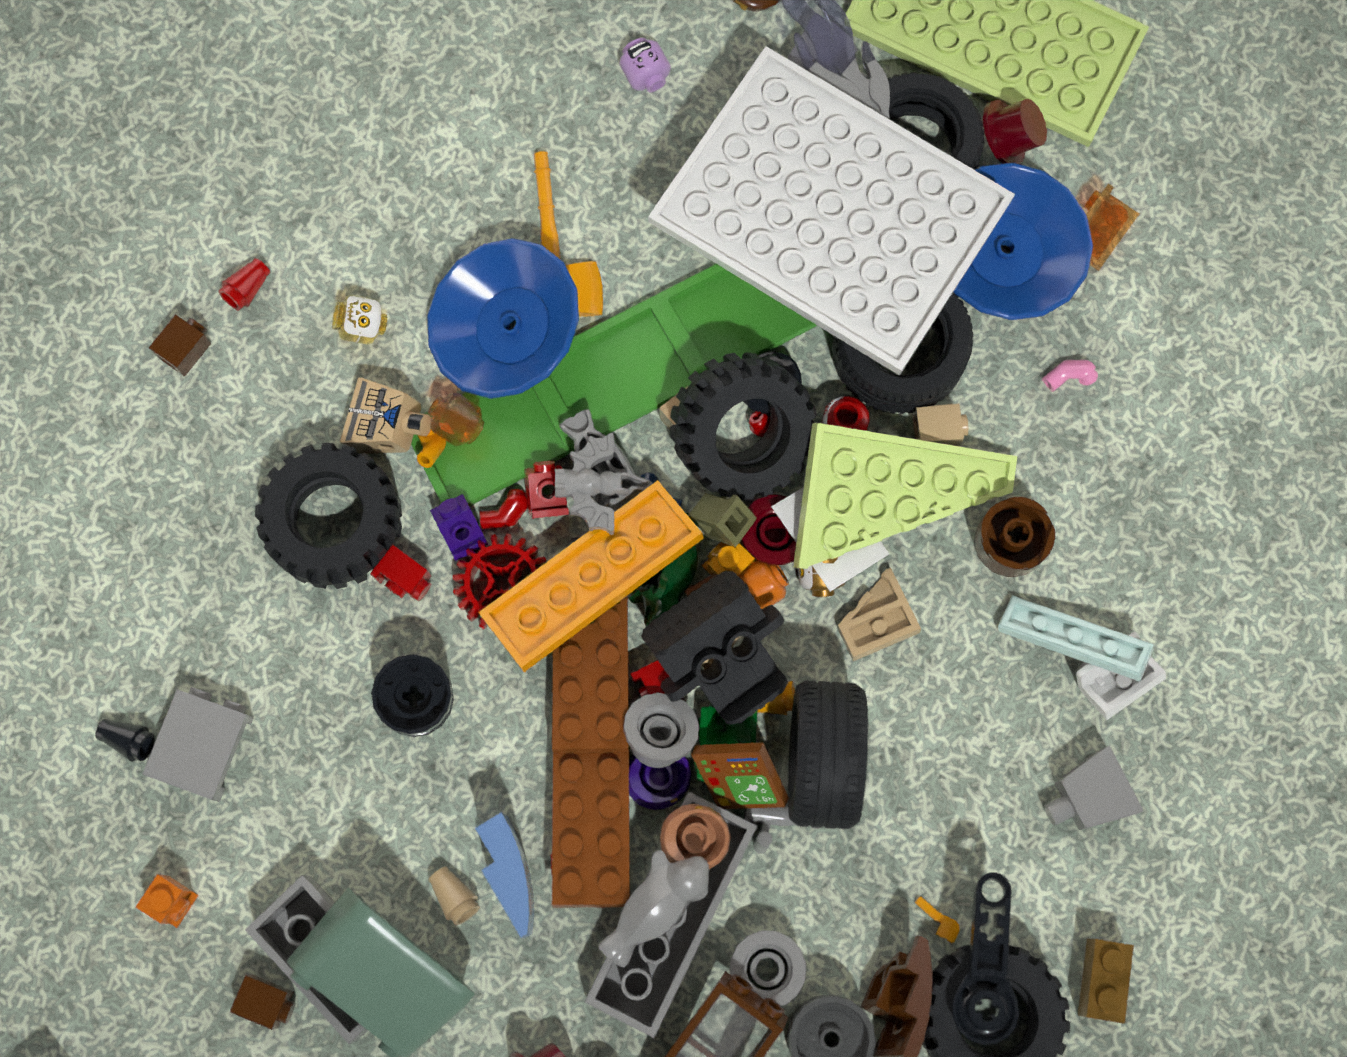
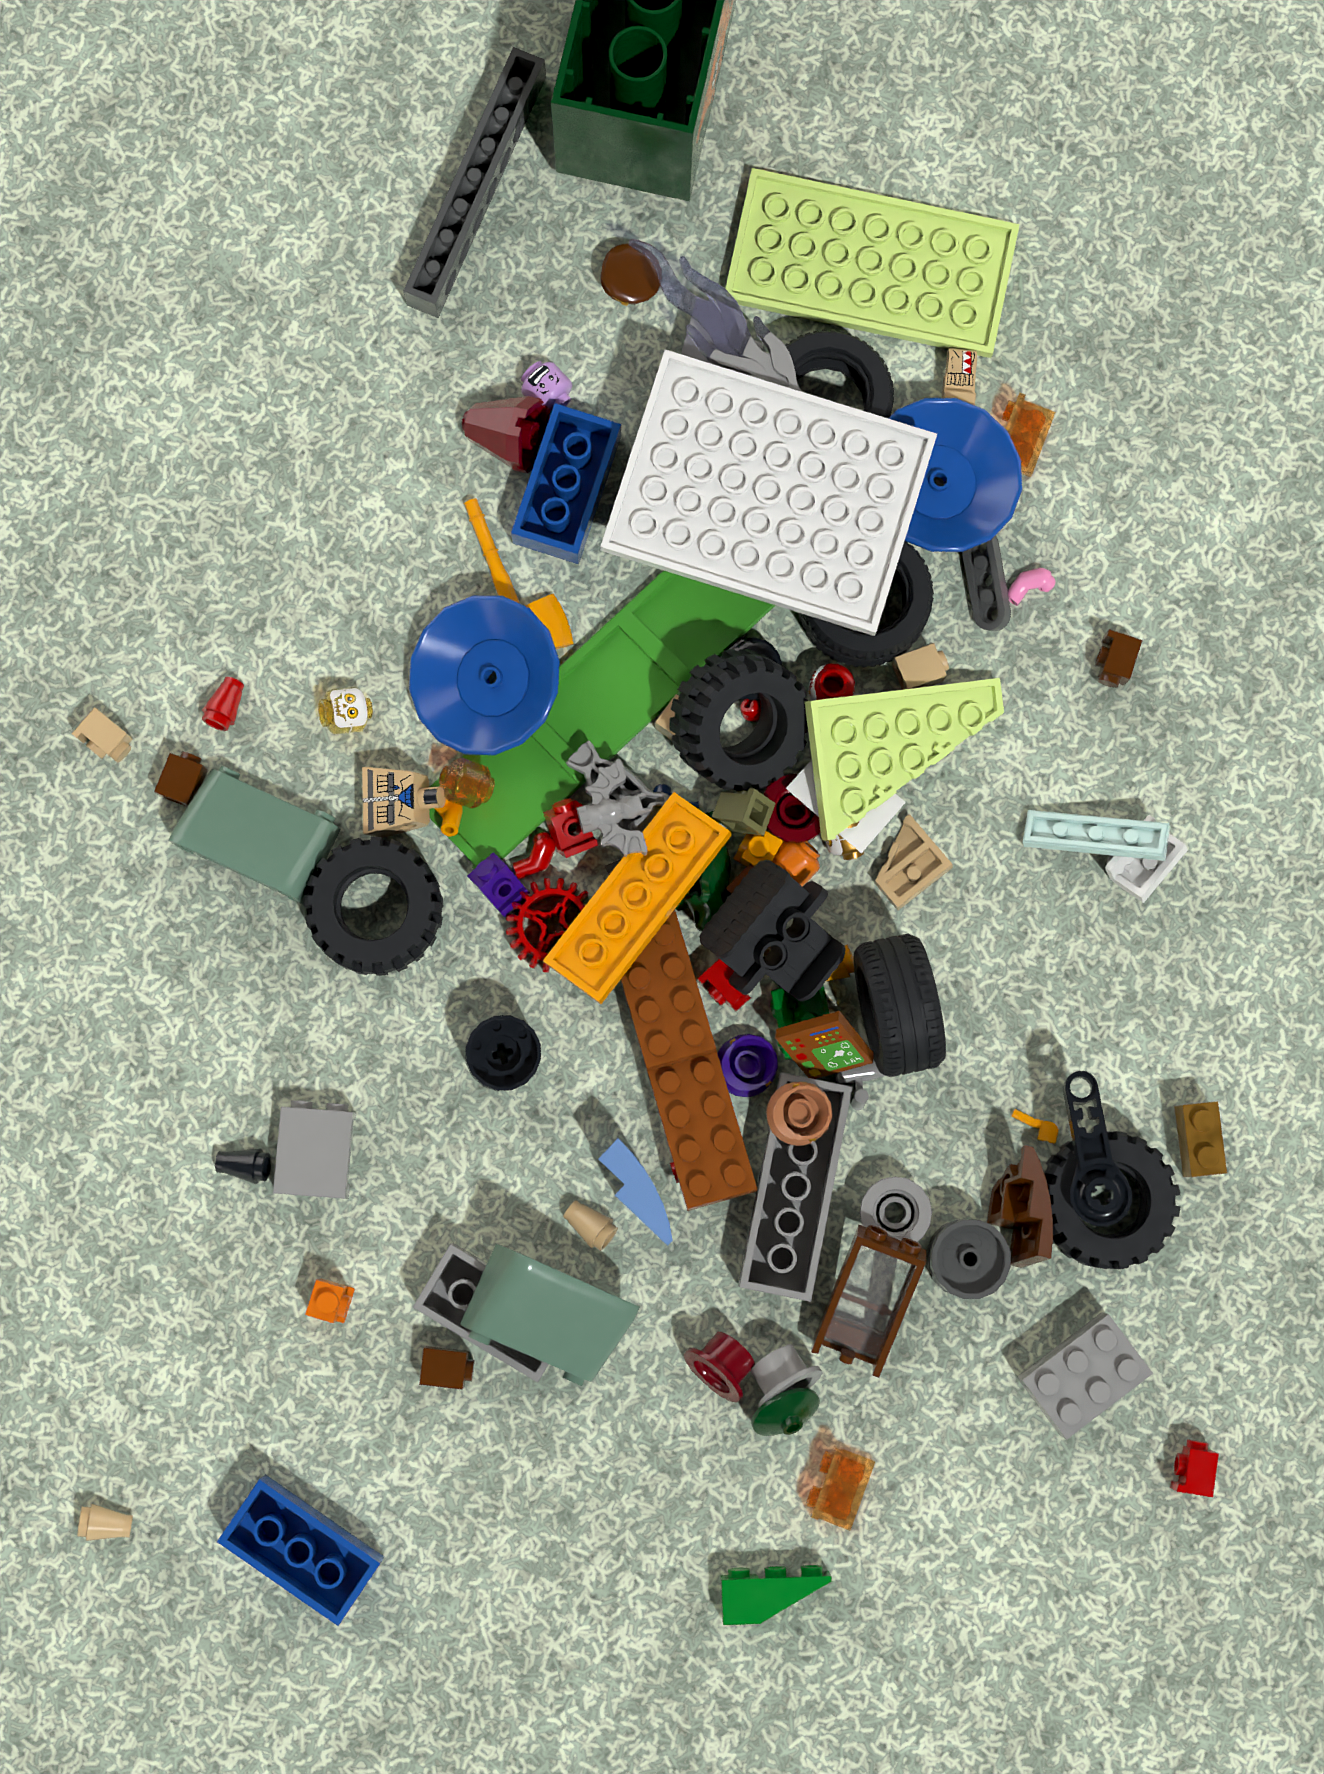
camera: 20 degrees left, 5 degrees up
(118, 283) = (104, 736): none -> tan brick
(233, 413) = (255, 834): none -> sand green windscreen
(403, 574) = (458, 943): red brick -> none
(598, 95) = (508, 429): none -> dark red cone
(637, 158) = (566, 483): none -> blue brick
(656, 904) = (782, 1182): light grey animal -> none
(660, 729) = (740, 1023): light grey piece -> none
(1013, 129) = (917, 363): dark red piece -> none
(1023, 375) = (983, 597): none -> dark grey plate
(1033, 531) = (1032, 744): reddish brown brick -> none
(1055, 153) = (960, 375): none -> tan leg
(1094, 793) = (1148, 973): light grey torso -> none
(1142, 468) = (1117, 658): none -> reddish brown brick

